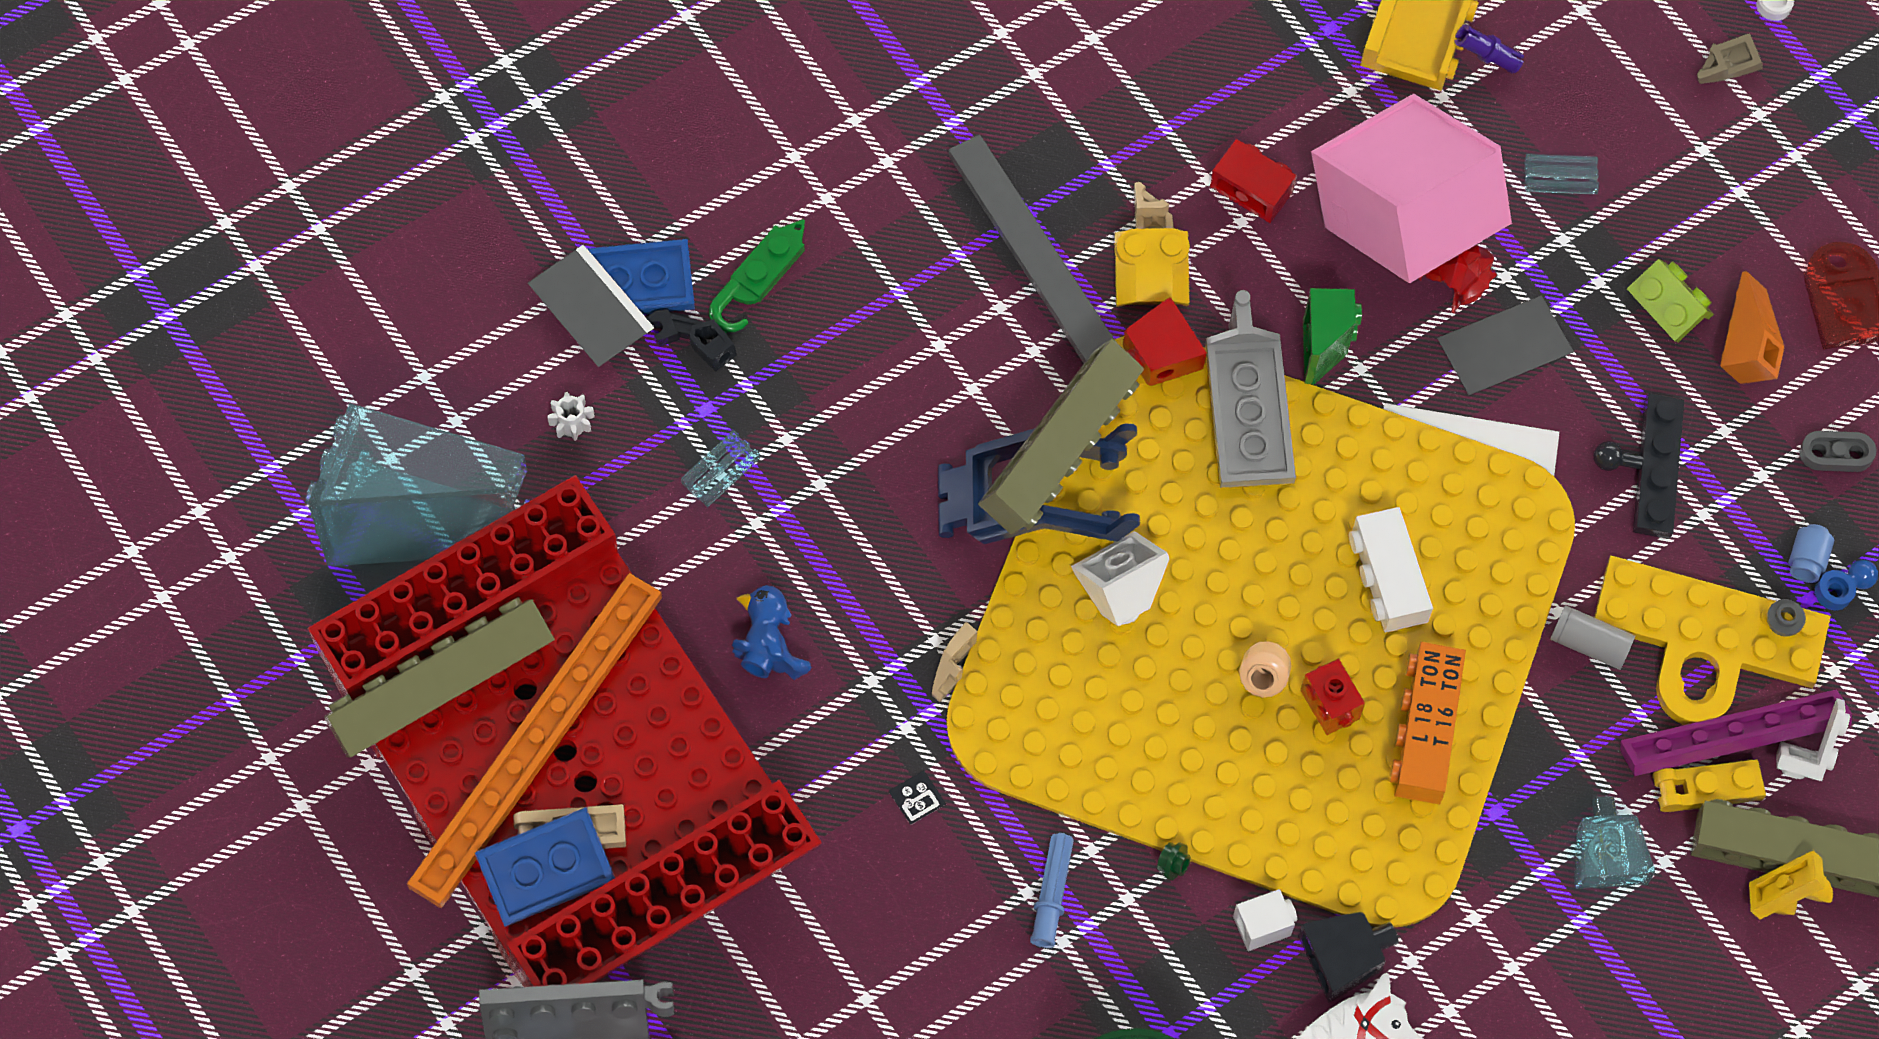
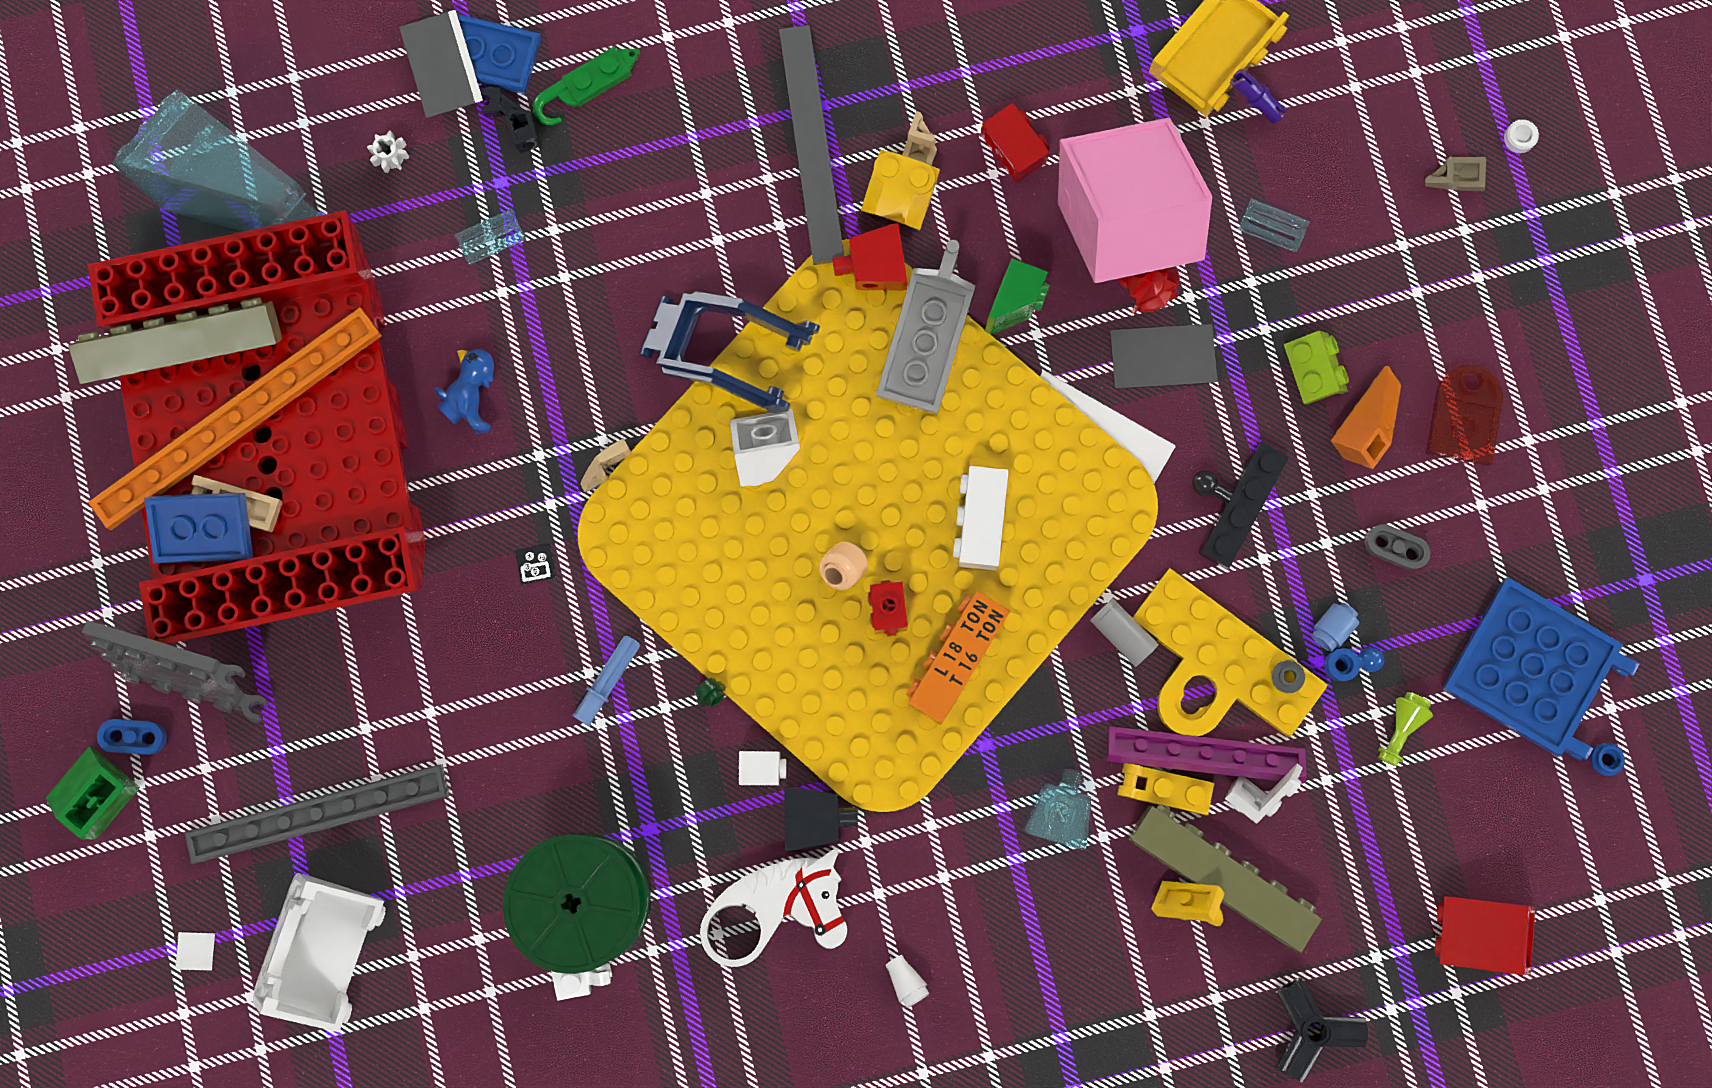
camera: 25 degrees right, 15 degrees up
(1061, 437) = (750, 316): olive brick -> none

